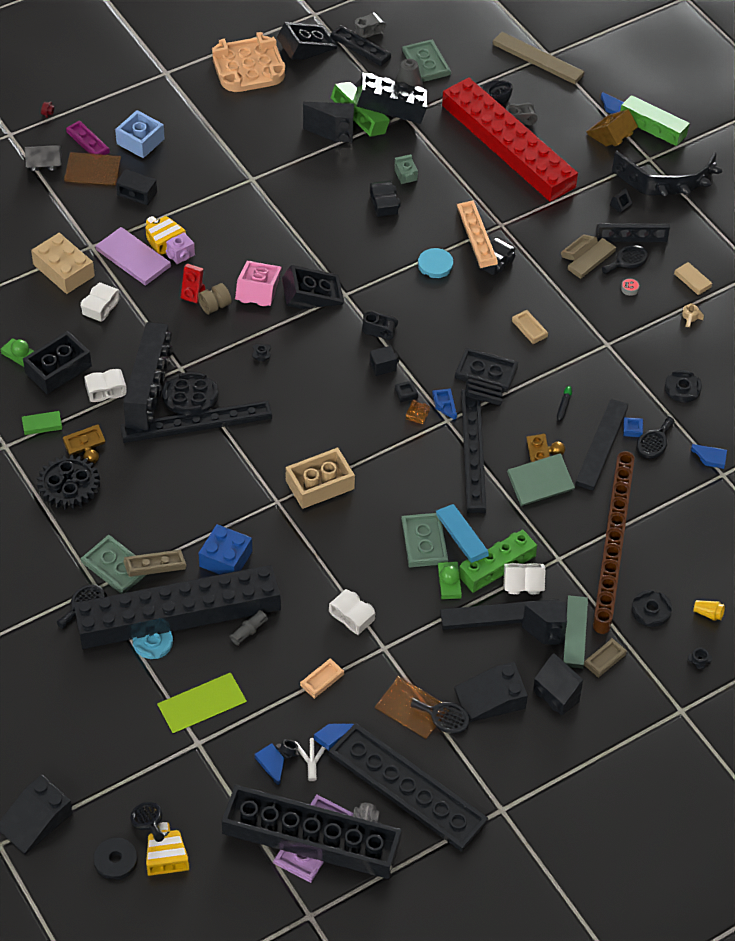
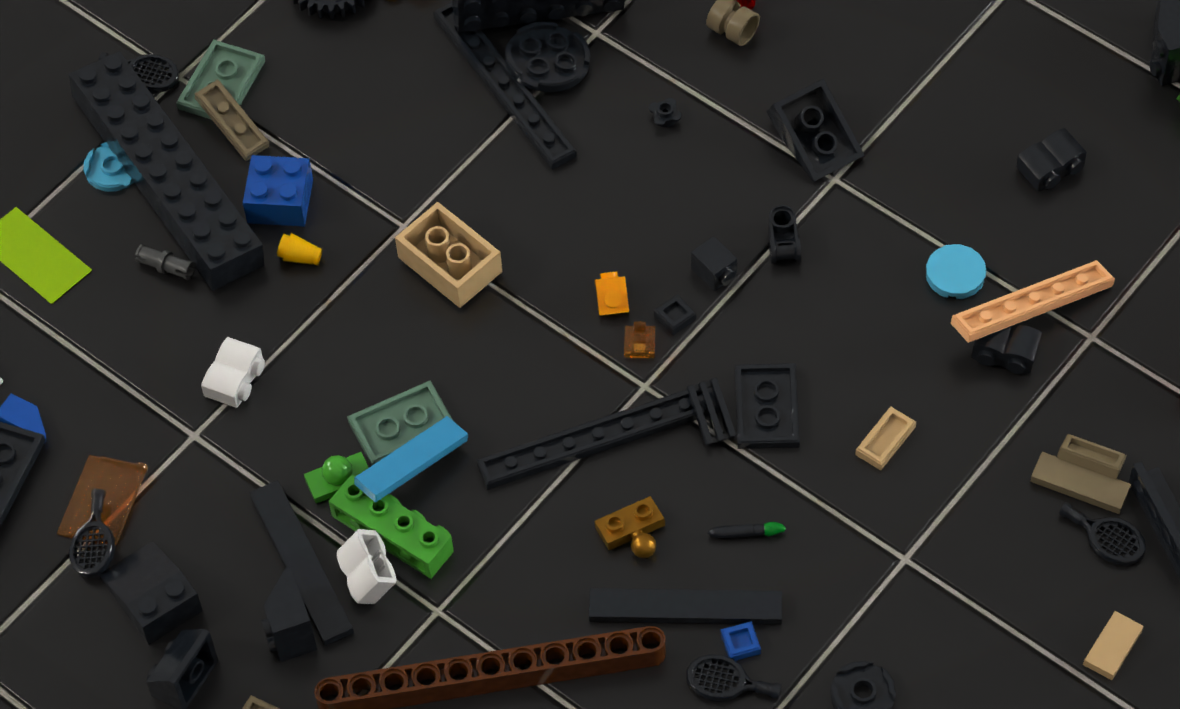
camera: 75 degrees right, 5 degrees up
(257, 283) = (793, 59): bright pink slope -> none
(274, 555) = (298, 250): none -> yellow cone
(322, 678) = (114, 376): light nougat tile -> none
(381, 412) = (611, 294): none -> light orange bracket
(406, 169) = (1132, 168): sand green brick -> none
(444, 402) = (676, 370): blue tile -> none
(540, 479) = (569, 538): sand green tile -> none
(575, 631) = (302, 669): sand green tile -> none
(630, 287) = (1046, 556): tile -> none
(691, 313) = (1031, 668): tan piece -> none

